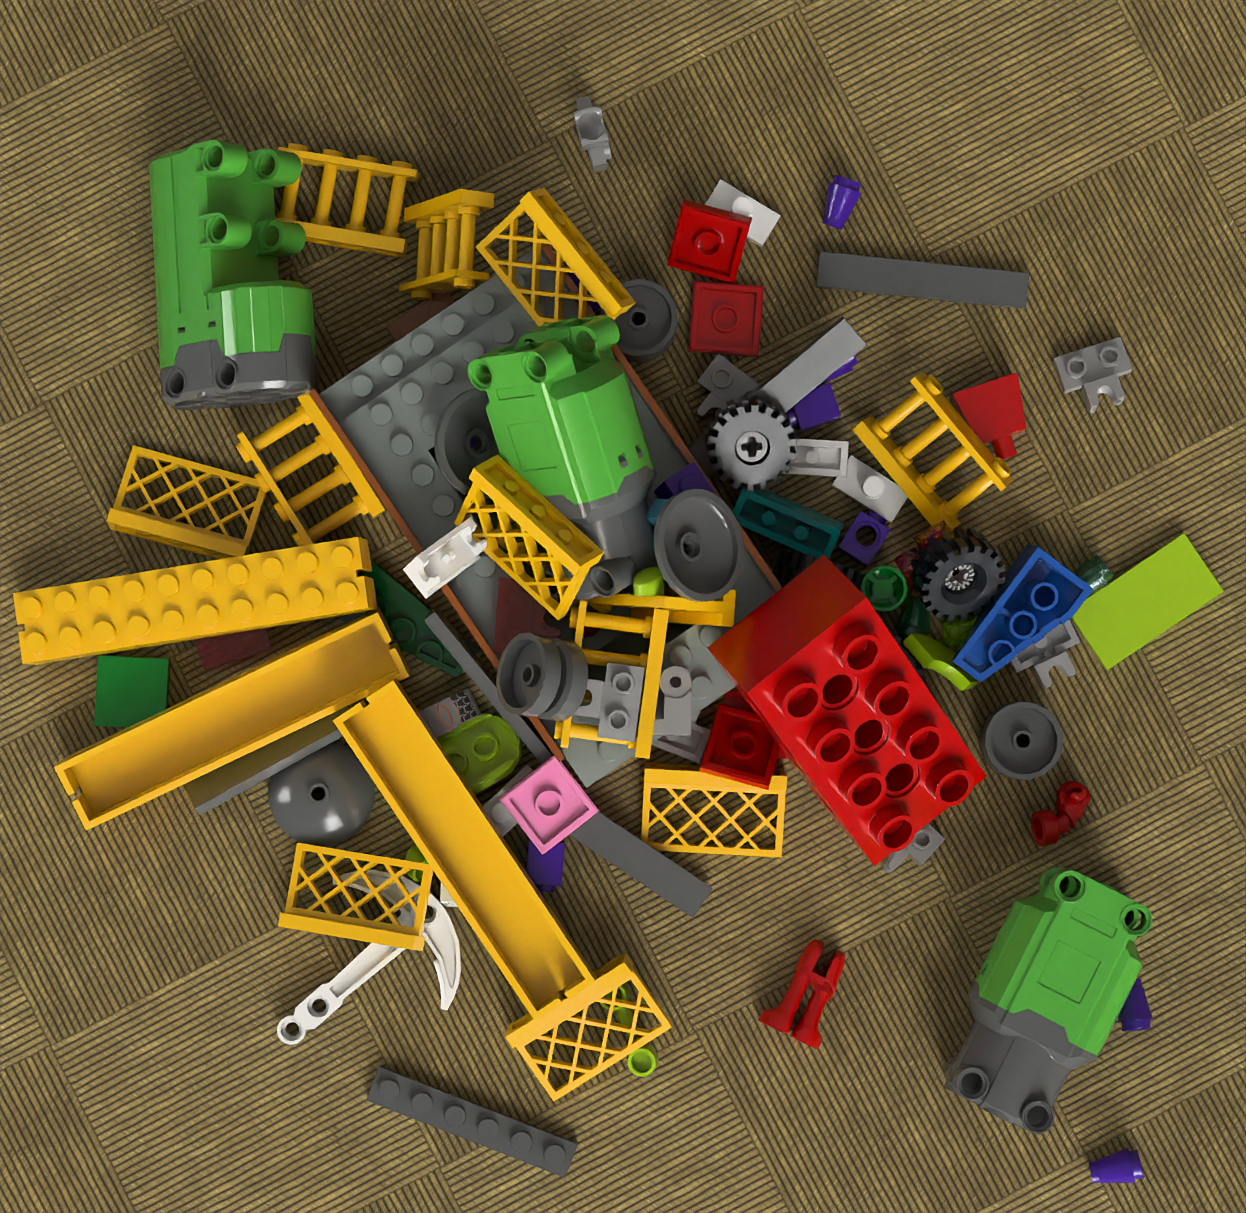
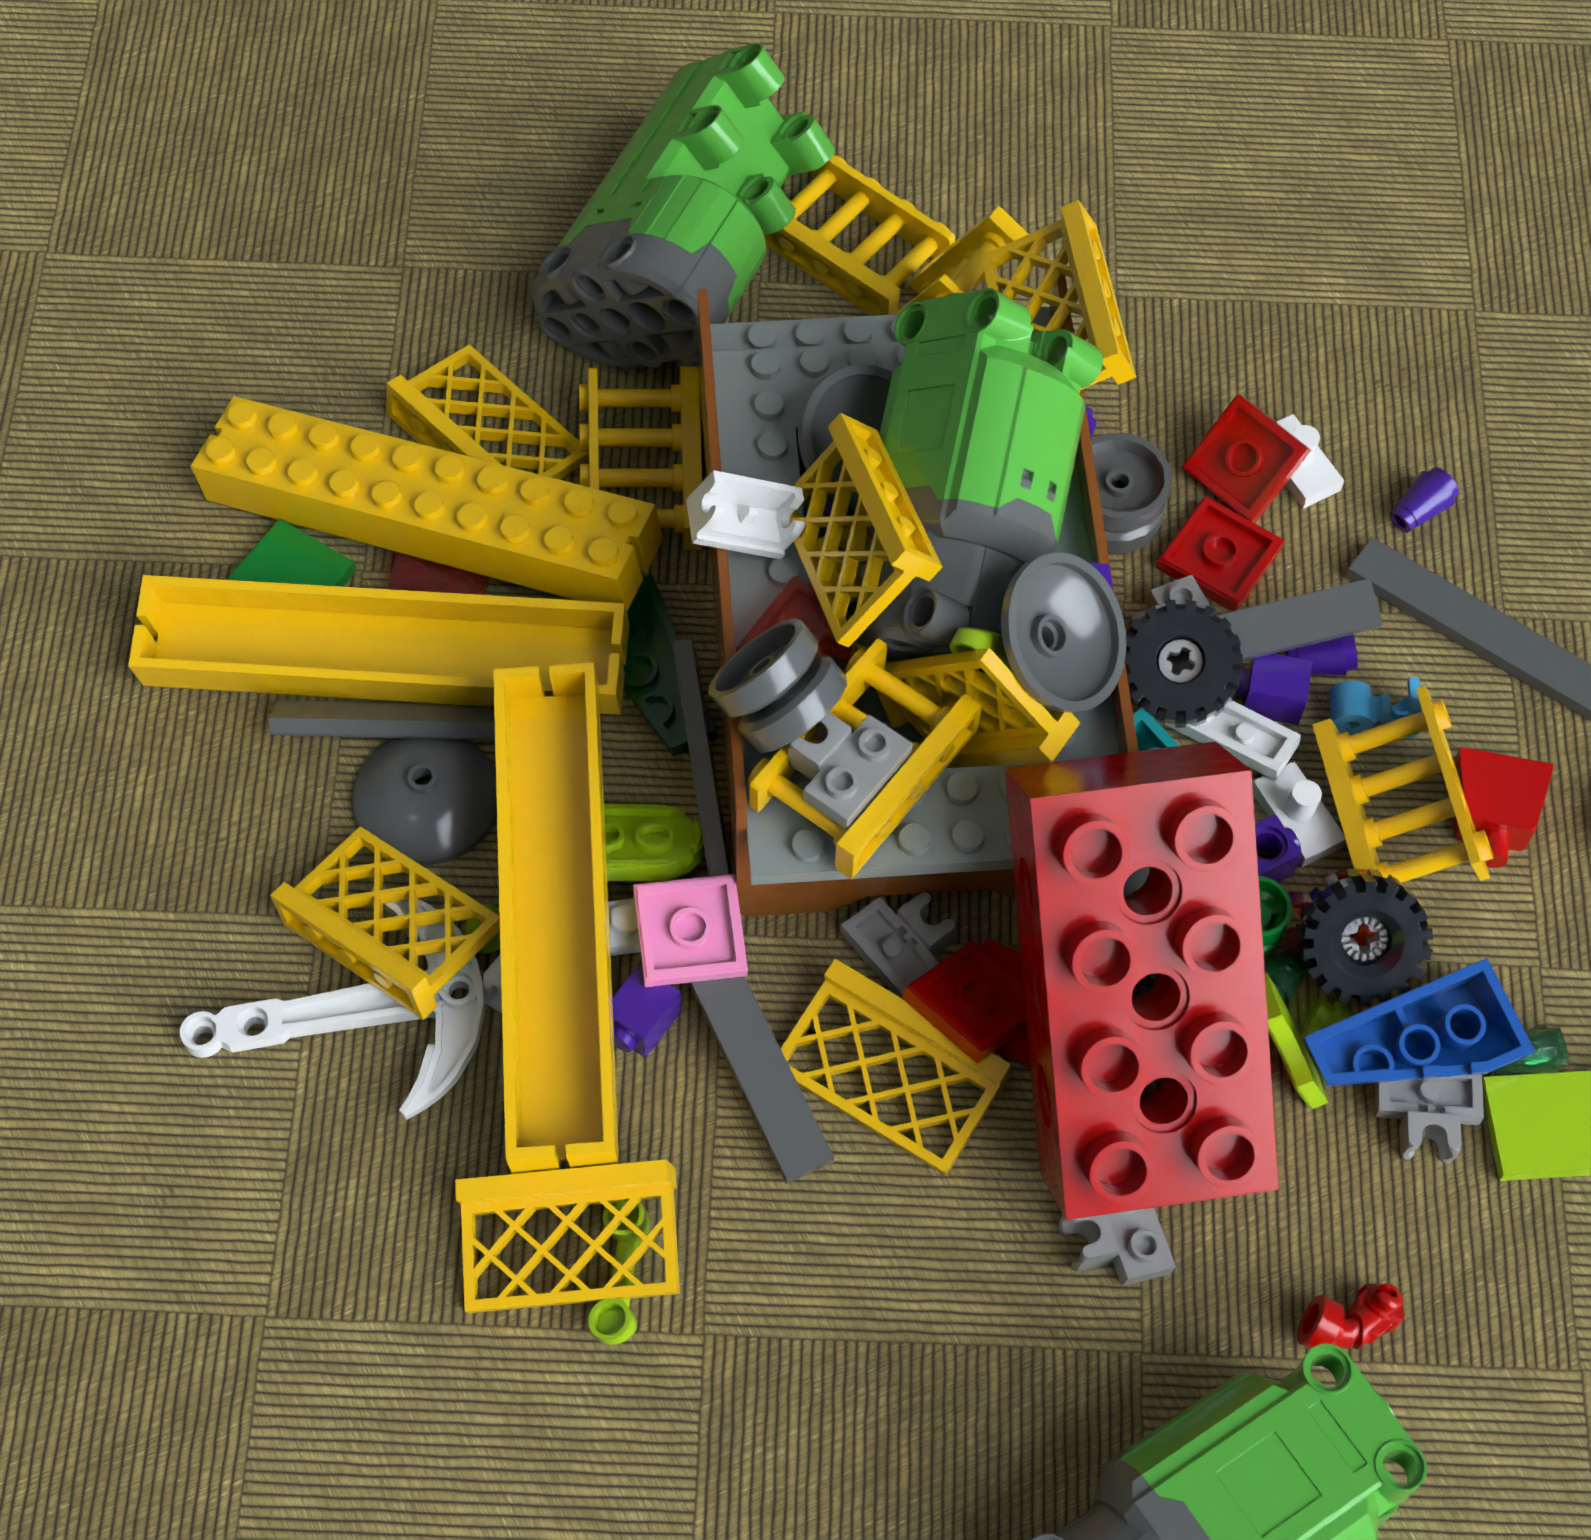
camera: 30 degrees right, 25 degrees down
(450, 712) = (638, 781): light grey leg -> none
(472, 1121) = (347, 1281): dark grey plate -> none
(592, 133) = (1172, 292): light grey plate -> none
(677, 692) = (924, 828): light grey leg -> none
(822, 986) = (907, 1362): red piece -> none
(874, 391) = (1357, 709): none -> dark azure leg
(1042, 738) = (1344, 1191): dark grey wheel -> none

